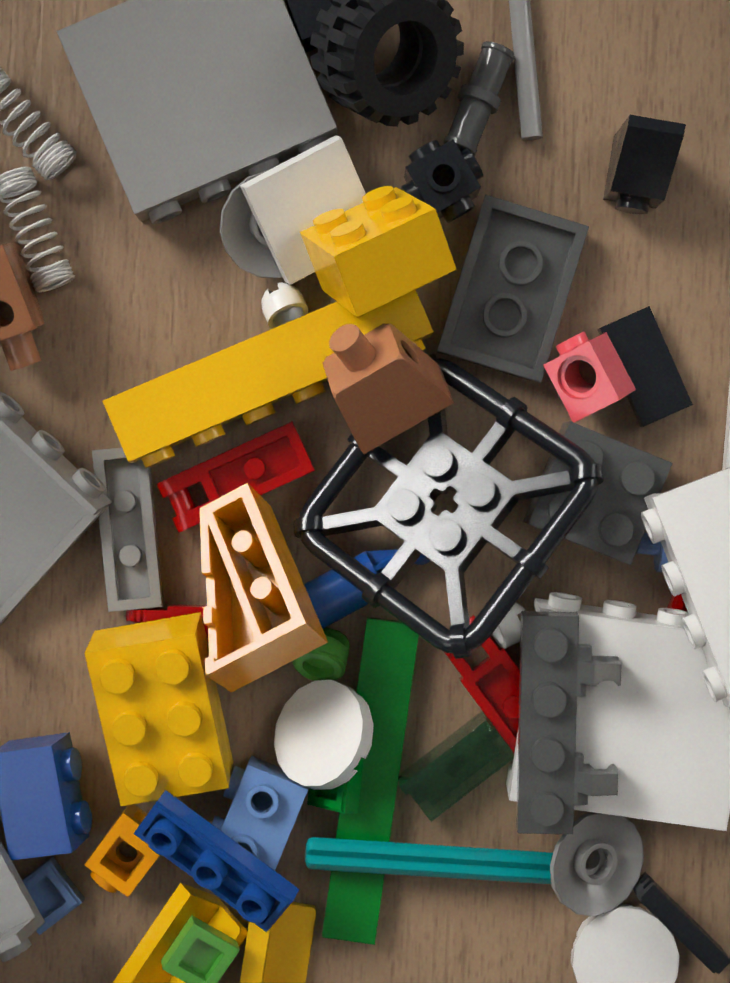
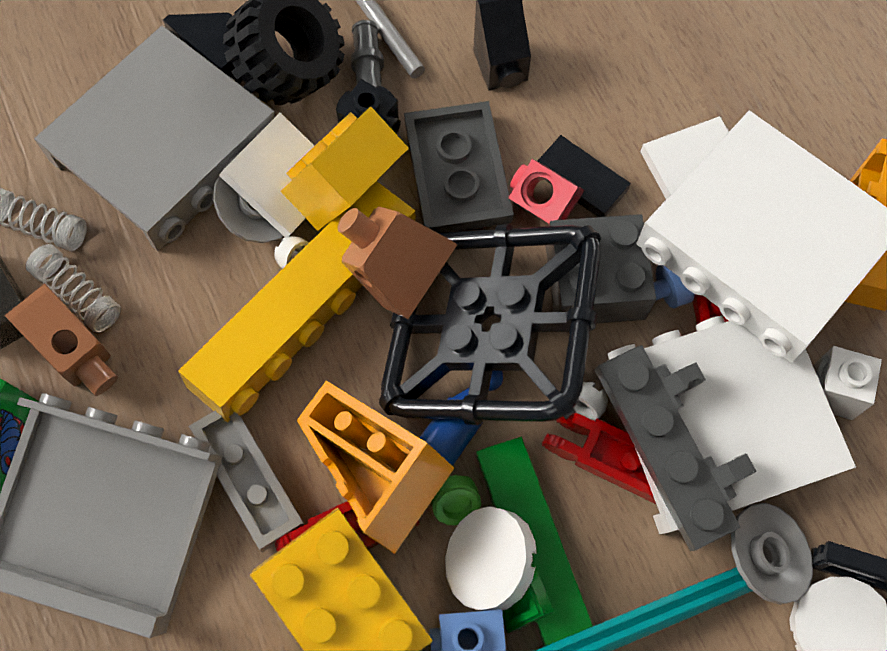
camera: 25 degrees left, 20 degrees down
(261, 462) = (341, 363): red plate -> none
(456, 766) = (612, 536): clear green panel -> none

